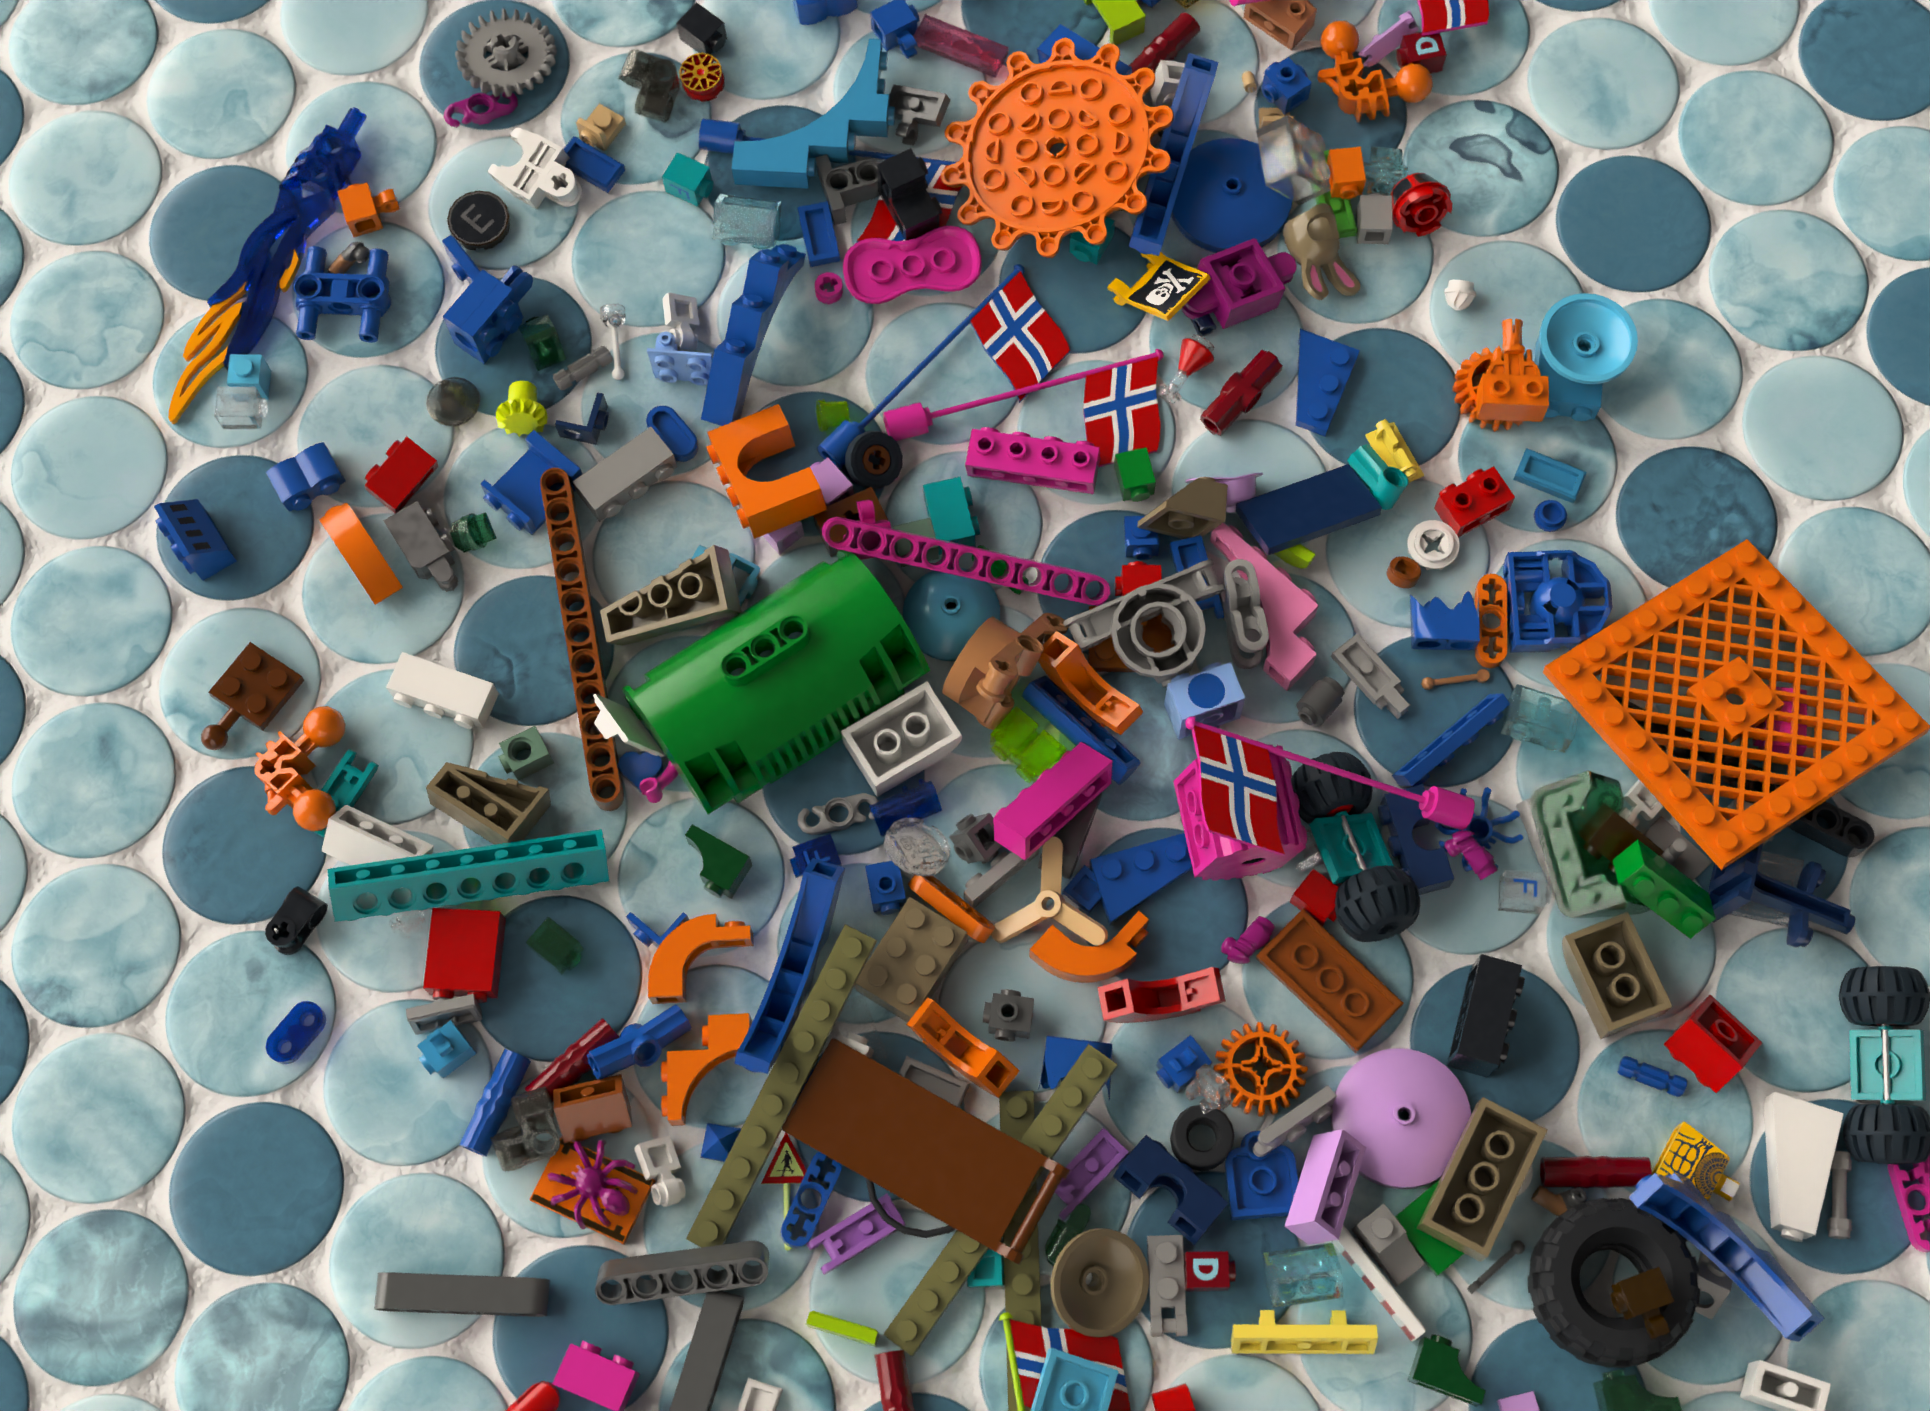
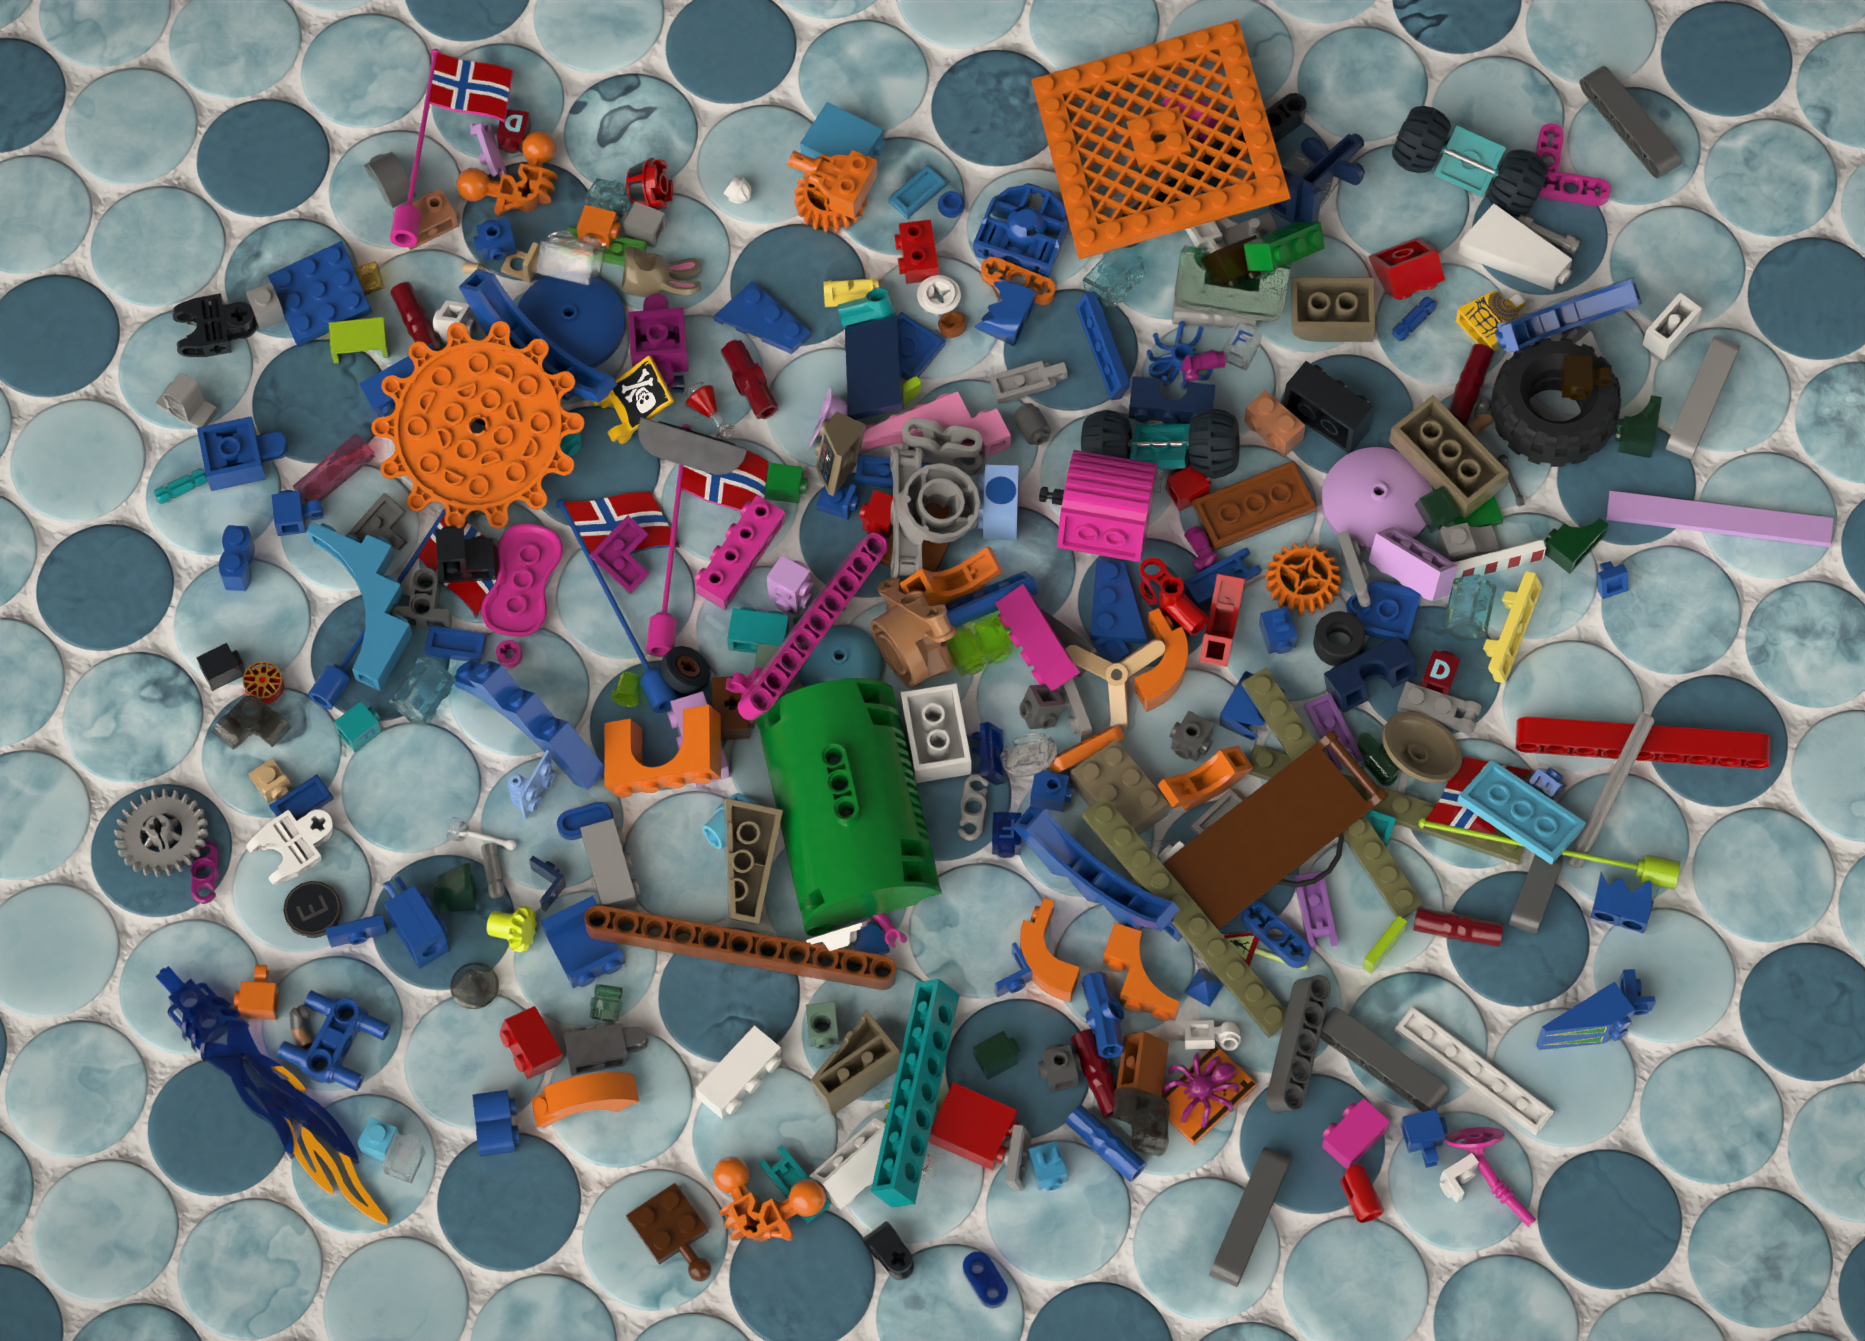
camera: 70 degrees left, 5 degrees down
(194, 537) = (514, 1228): blue slope -> none
(557, 1029) = (1059, 1067): none -> dark grey brick
(682, 314) = (484, 774): white plate -> none
(722, 864) = (979, 907): dark green arch -> none
(974, 341) = (615, 557): none -> magenta plate
(1010, 522) = (790, 585): none -> lavender brick
(1131, 362) = (690, 447): none -> brick
(1166, 929) = (1169, 597): none -> red connector
(1212, 1087) = (1306, 614): clear tile -> none
(1236, 982) = (1202, 585): none -> blue hinge
(1241, 797) = (1103, 484): flag -> none
(1358, 546) = (918, 346): none -> blue tile
(1408, 1192) = (1437, 510): none -> clear green brick
(1440, 963) = (1274, 423): none -> nougat brick
(1481, 676) = (1058, 306): medium nougat hinge -> none
(1591, 323) = (830, 98): medium azure dish -> none

